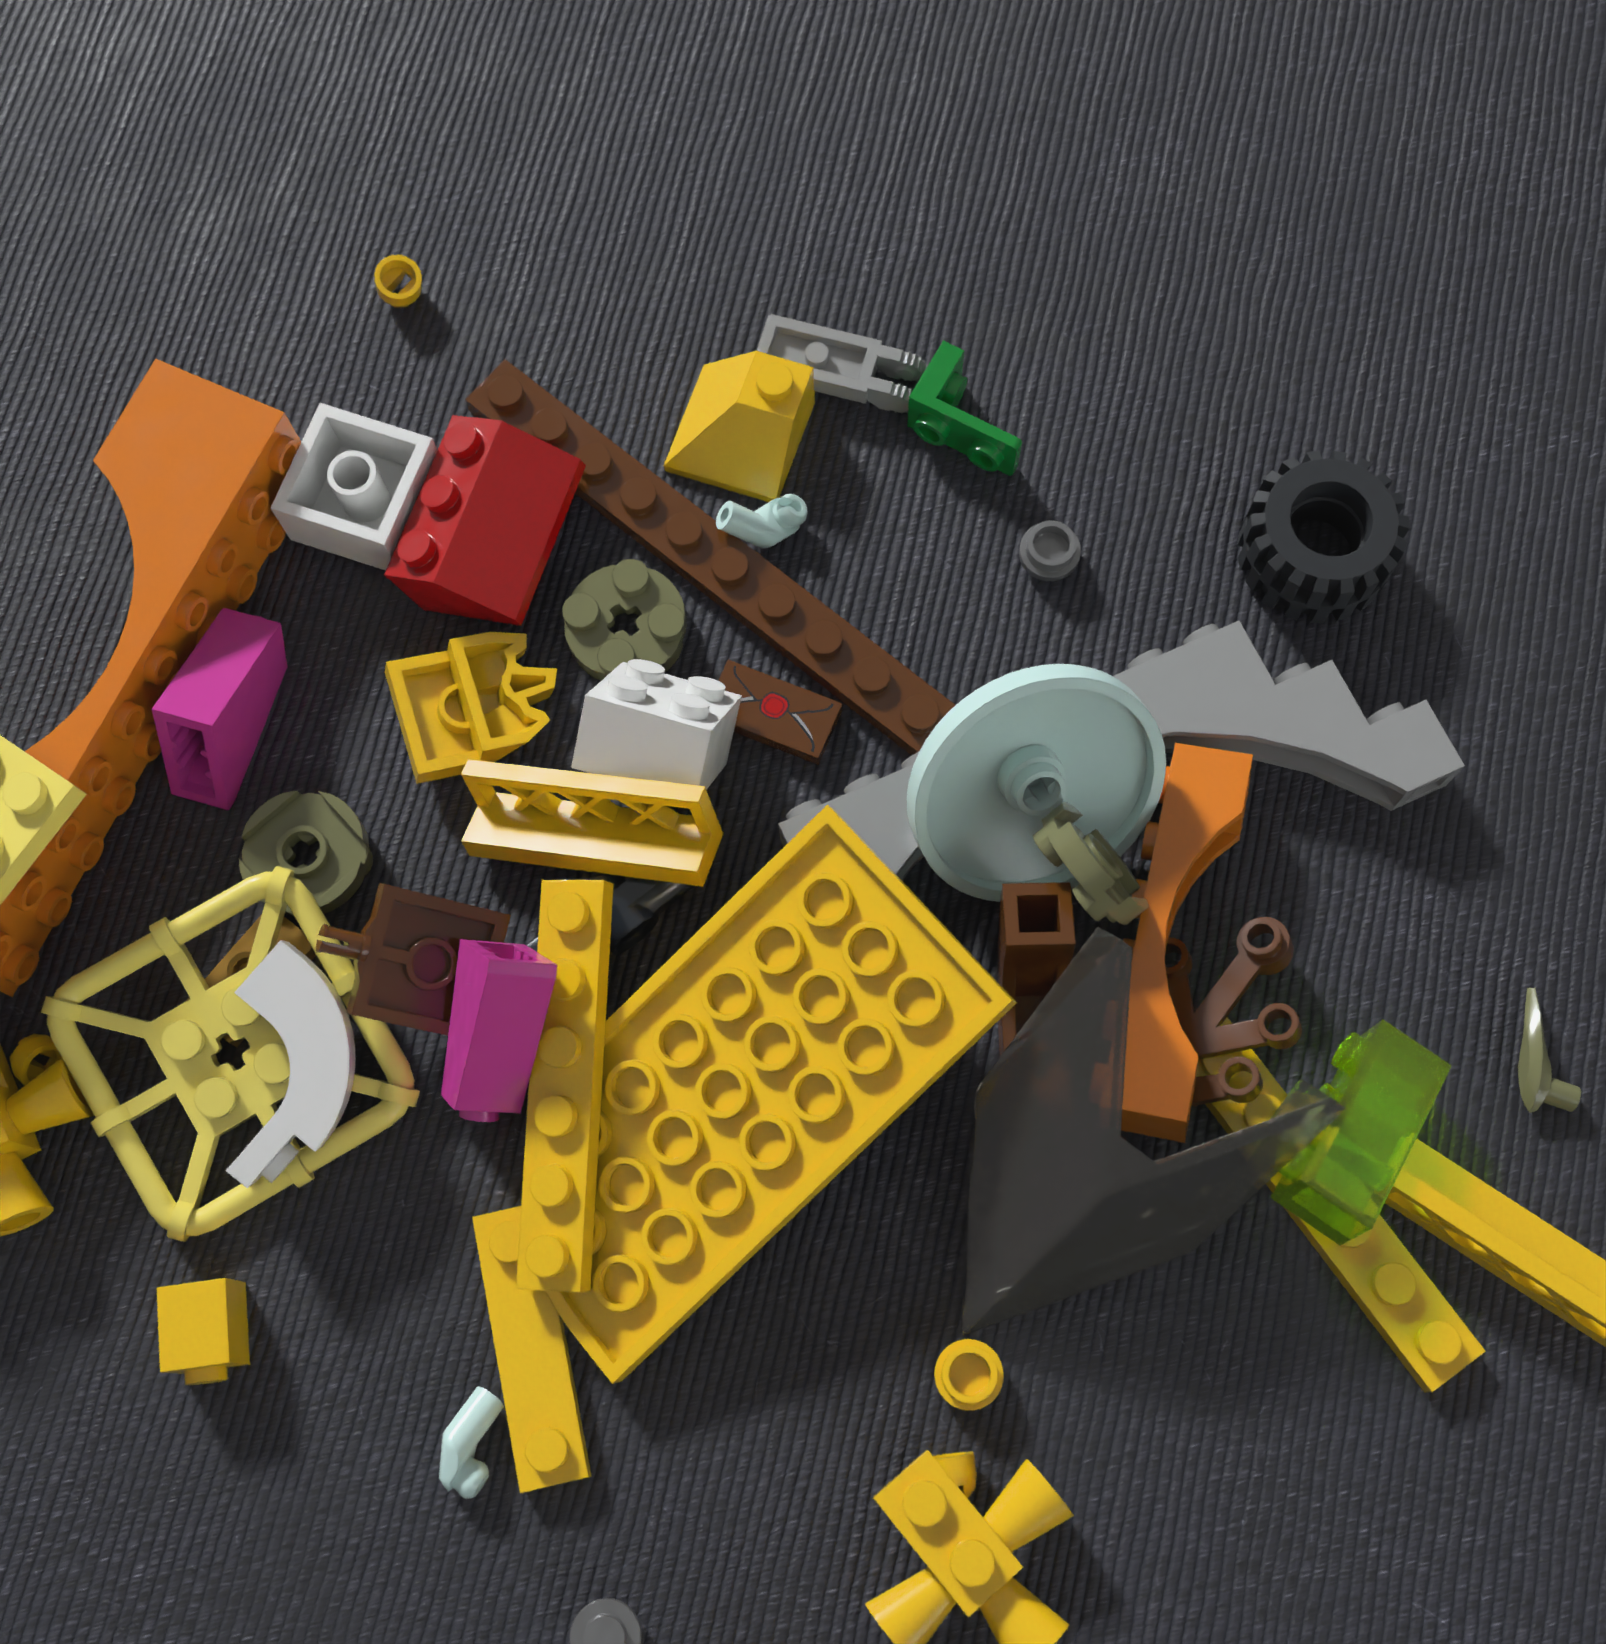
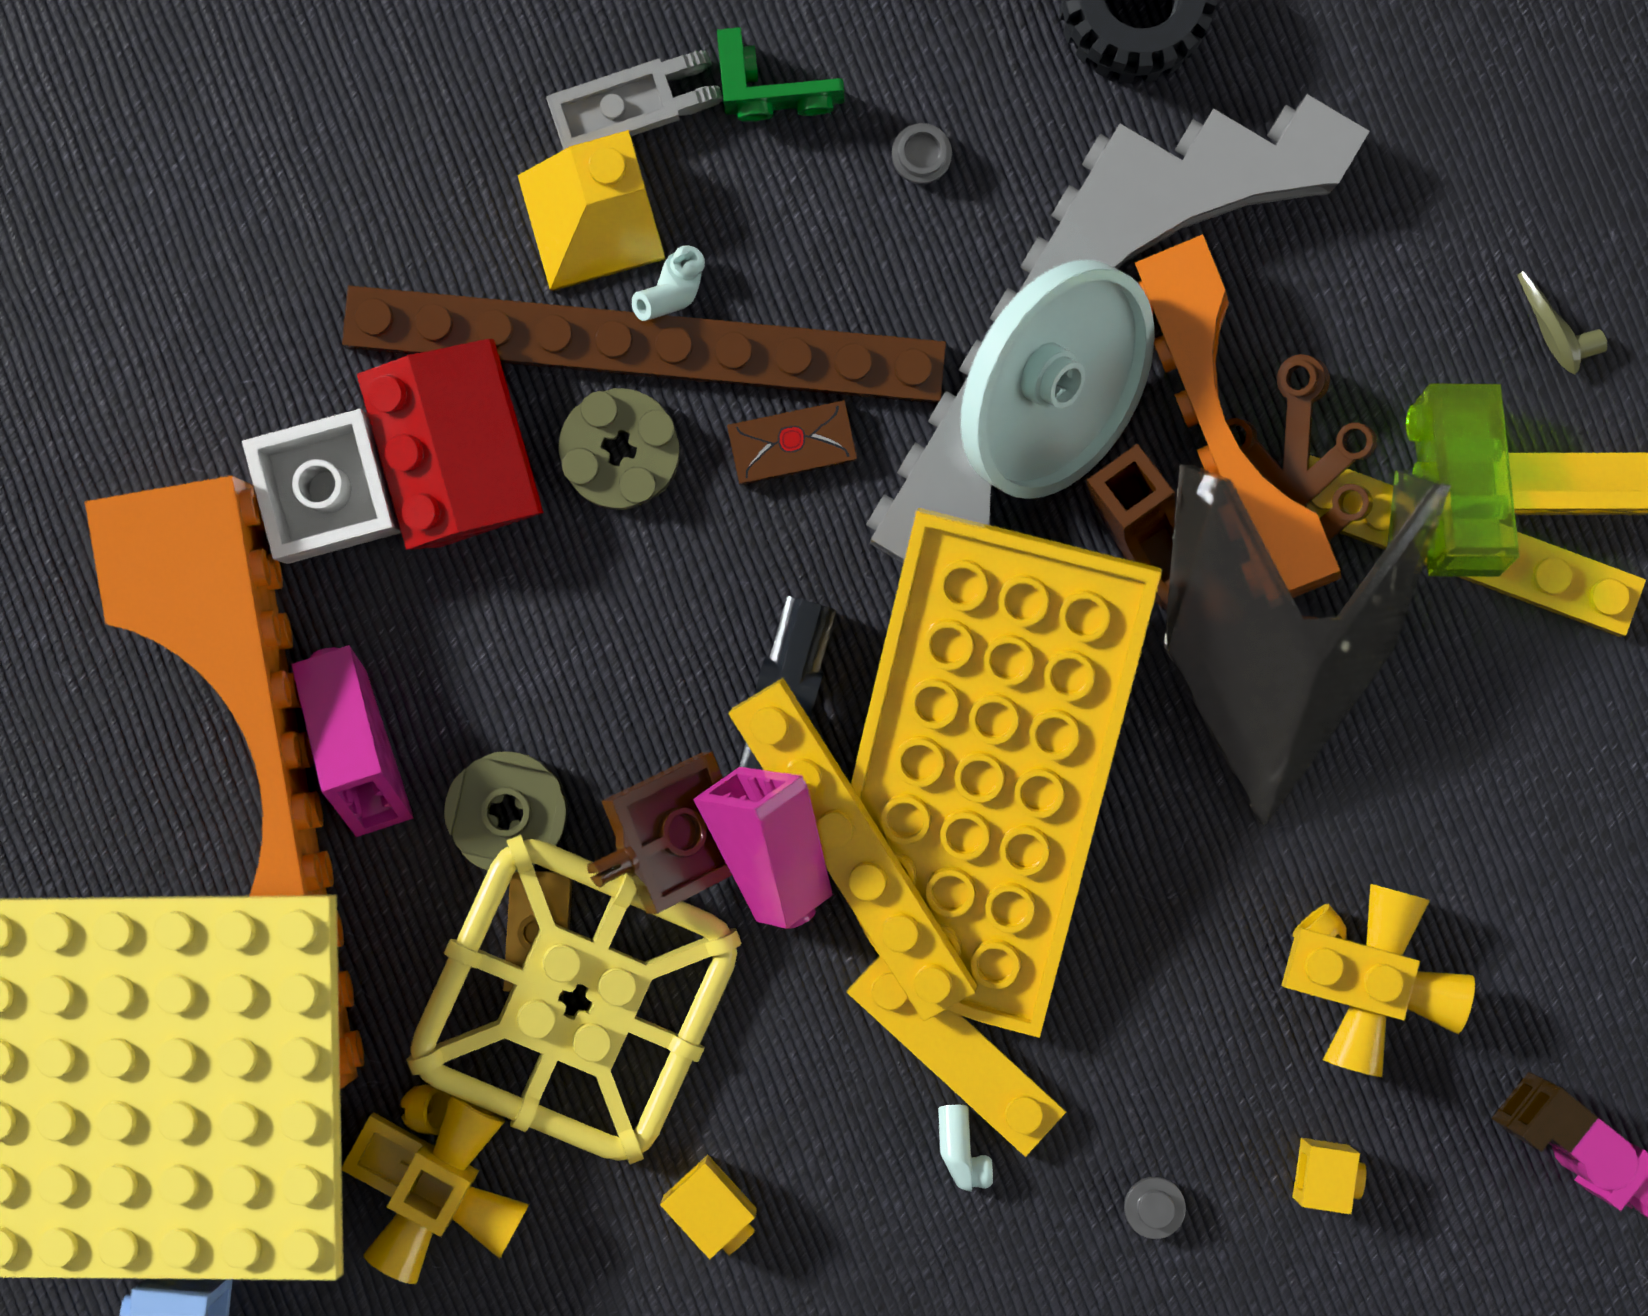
camera: 40 degrees left, 15 degrees up
(321, 1059) = (621, 935): white arch -> none
(389, 275) = (215, 279): yellow hinge -> none
(467, 702) = (545, 604): yellow plate -> none
(590, 829) = (725, 640): yellow fence -> none
(656, 726) = (724, 530): white brick -> none
(968, 1374) = (1288, 851): yellow plate -> none
(1094, 863) = (1142, 416): olive plate -> none

